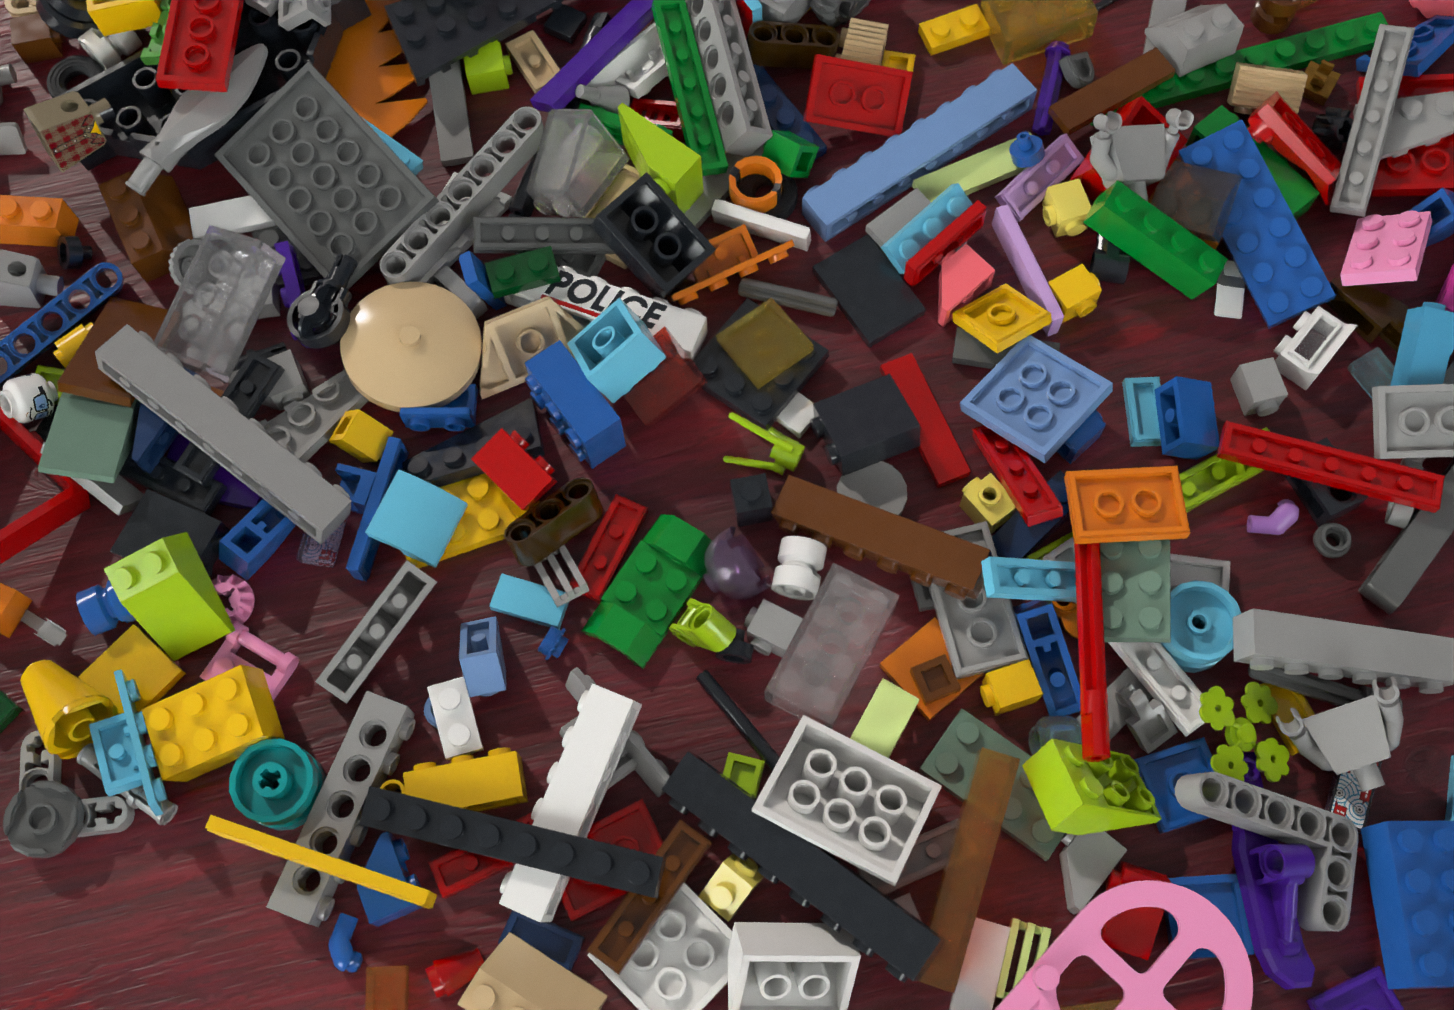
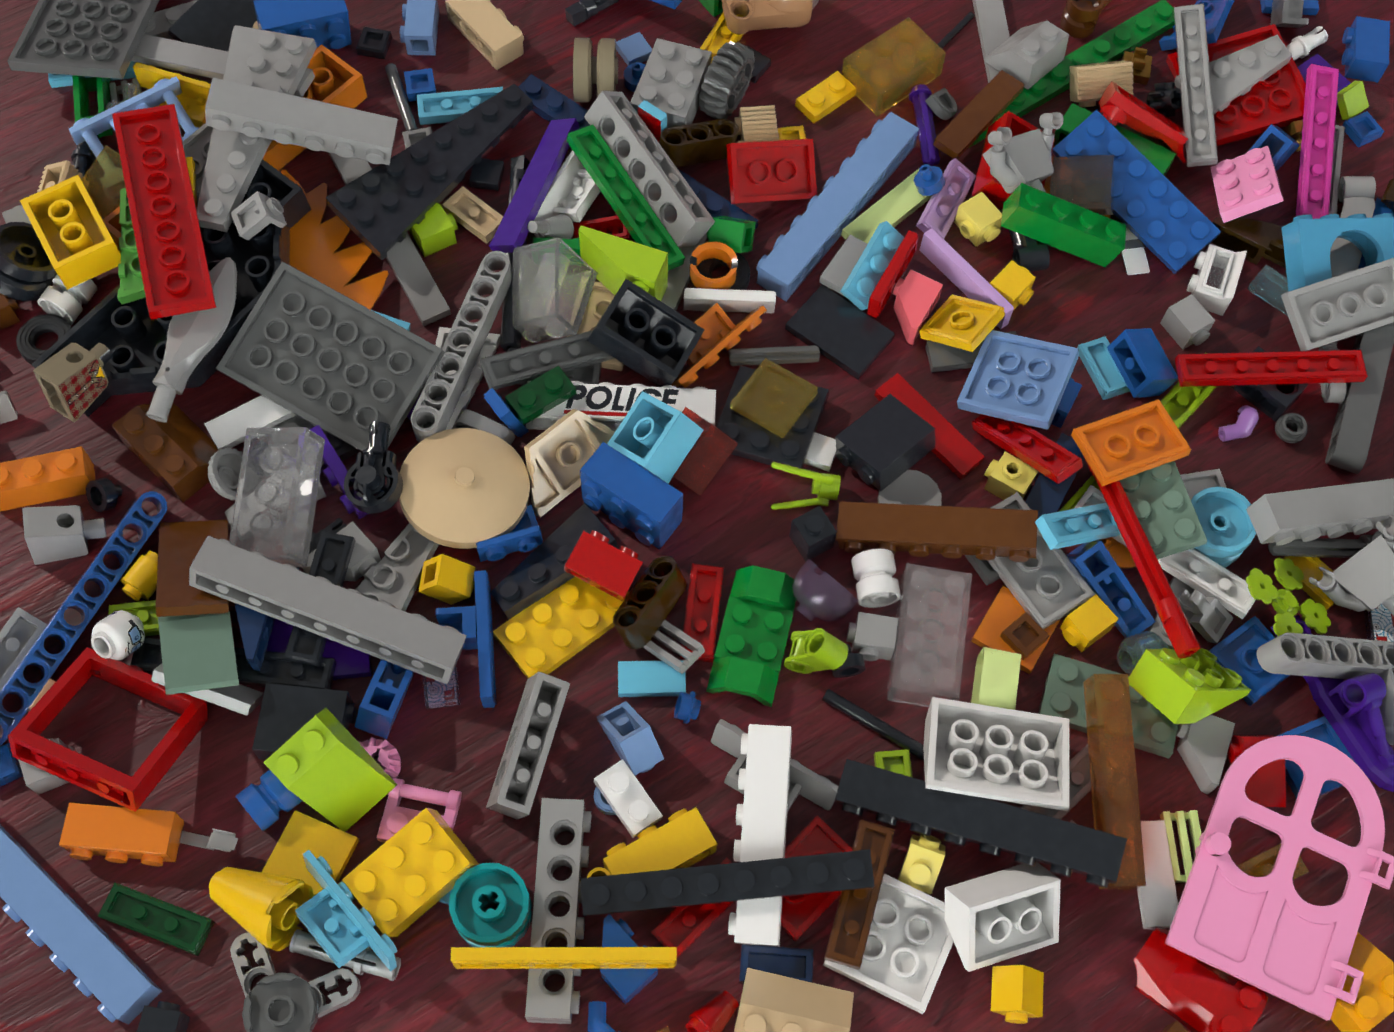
camera: 25 degrees left, 5 degrees down
(416, 518) = (528, 635): medium azure slope -> none

